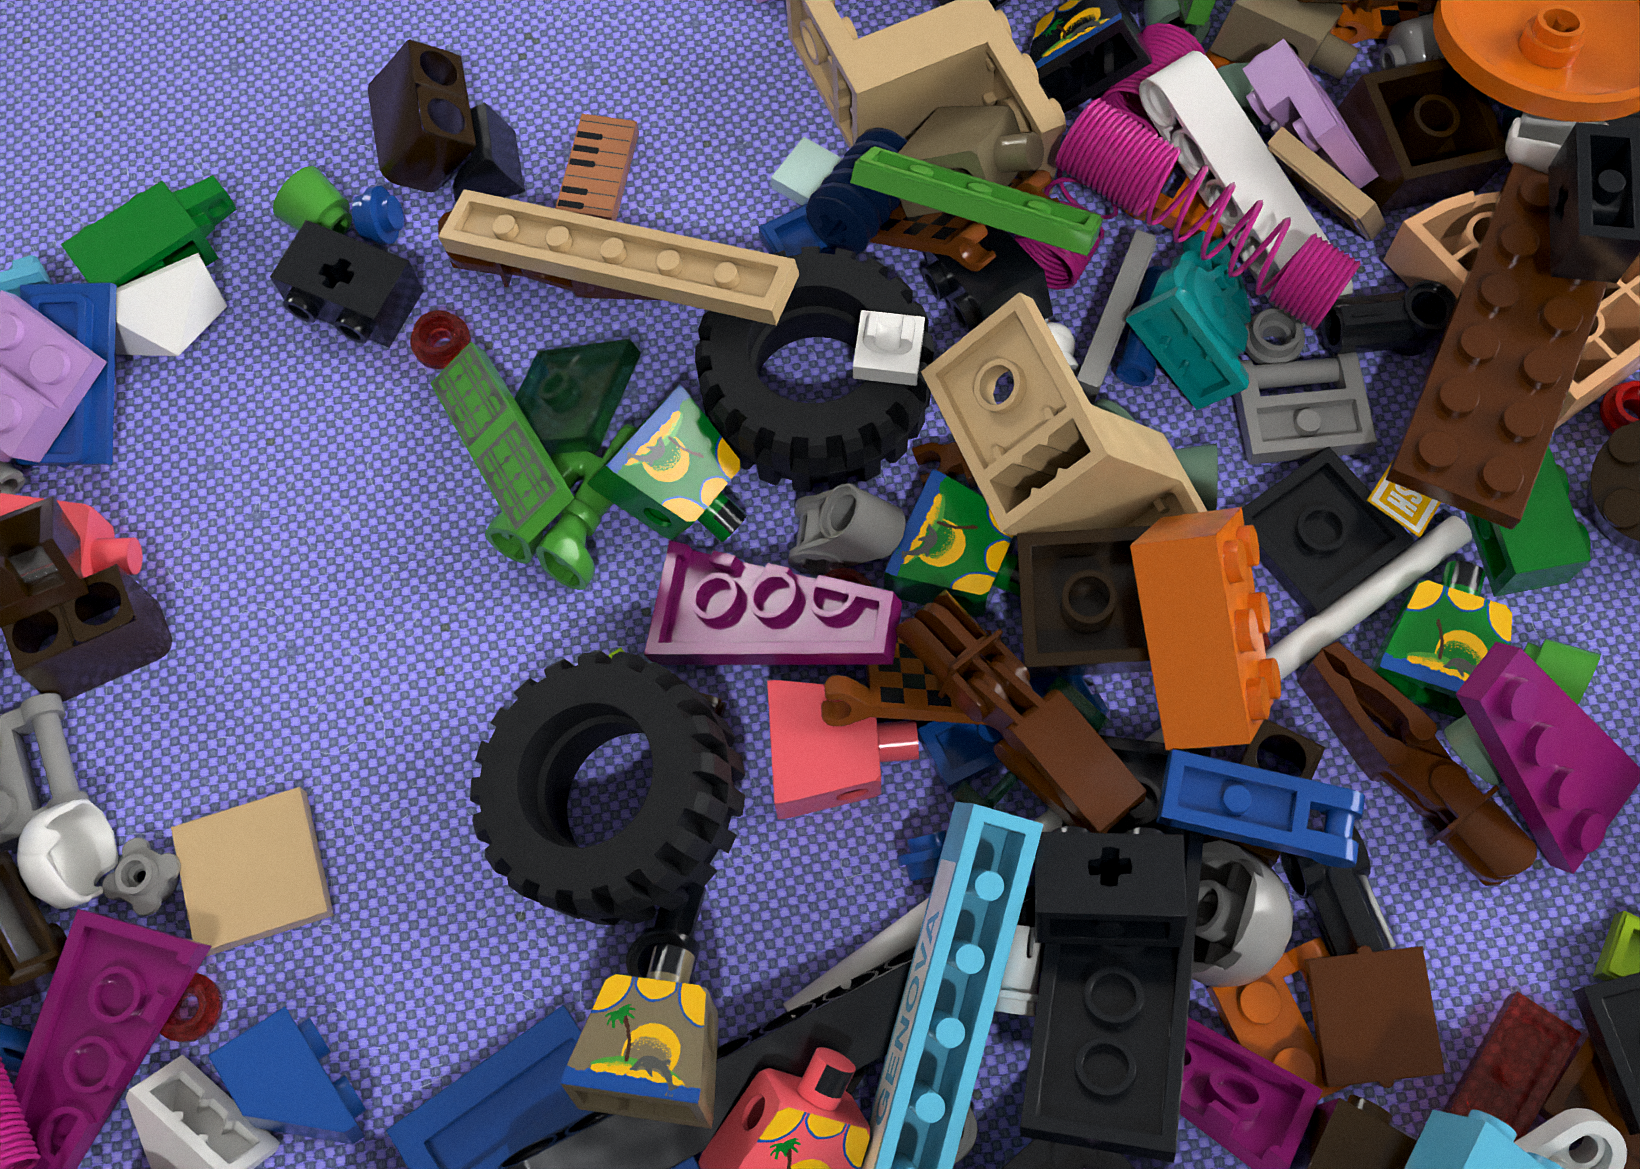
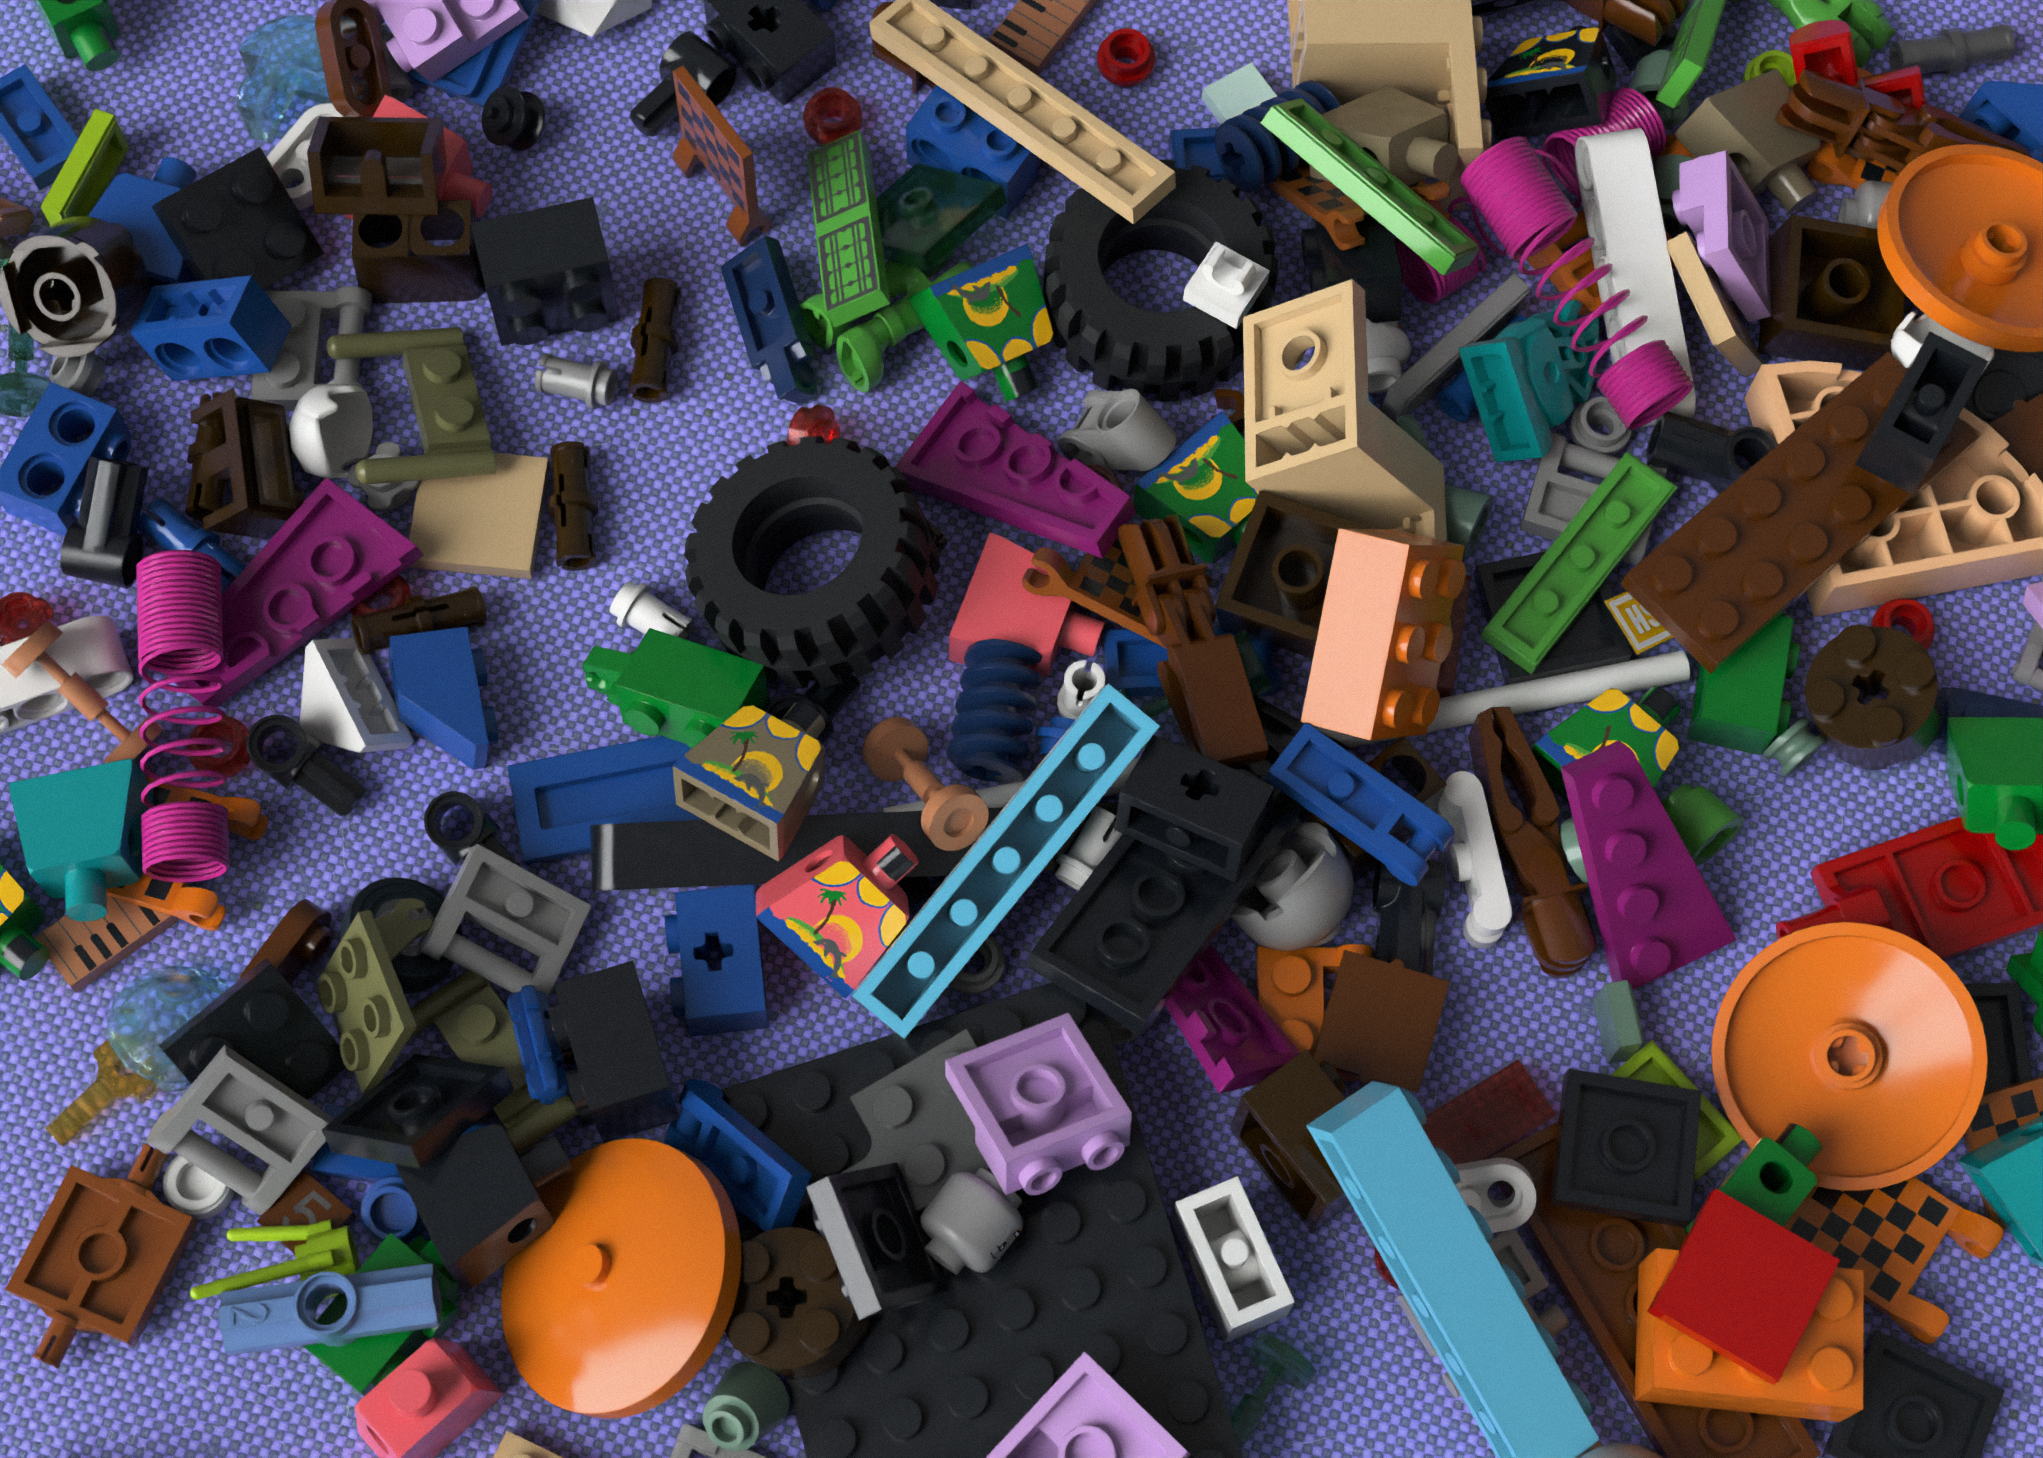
camera: 15 degrees right, 0 degrees up
(132, 464) = (513, 118): none -> black wheel
(172, 776) = (443, 402): none -> olive plate
(220, 604) = (546, 272): none -> black brick
(233, 1015) = (418, 615): none -> dark brown pin
(290, 356) = (704, 63): none -> black axle
(310, 693) = (577, 380): none -> light grey pin
(336, 410) = (717, 145): none -> dark orange flag
(344, 825) = (573, 506): none -> dark brown pin
(358, 624) = (655, 340): none -> dark brown pin
(463, 557) = (771, 319): none -> dark blue hinge
(468, 905) = (643, 611): none -> white pin
(528, 975) = (676, 685): none -> green hinge
(548, 646) = (813, 422): none -> clear red plate
(574, 313) = (961, 141): none -> blue brick
(683, 165) = (1126, 44): none -> red plate
(848, 859) = (990, 708): none -> dark blue piece
(866, 998) = (951, 814): none -> nougat wheel
(916, 814) = (1078, 683): none -> white pin
(1326, 475) = (1578, 562): none -> bright green tile
(1387, 815) = (1475, 859): none -> white plate
(1588, 908) = (1618, 1021): none -> sand green tile
(1606, 564) = (1795, 747): none -> sand green bush

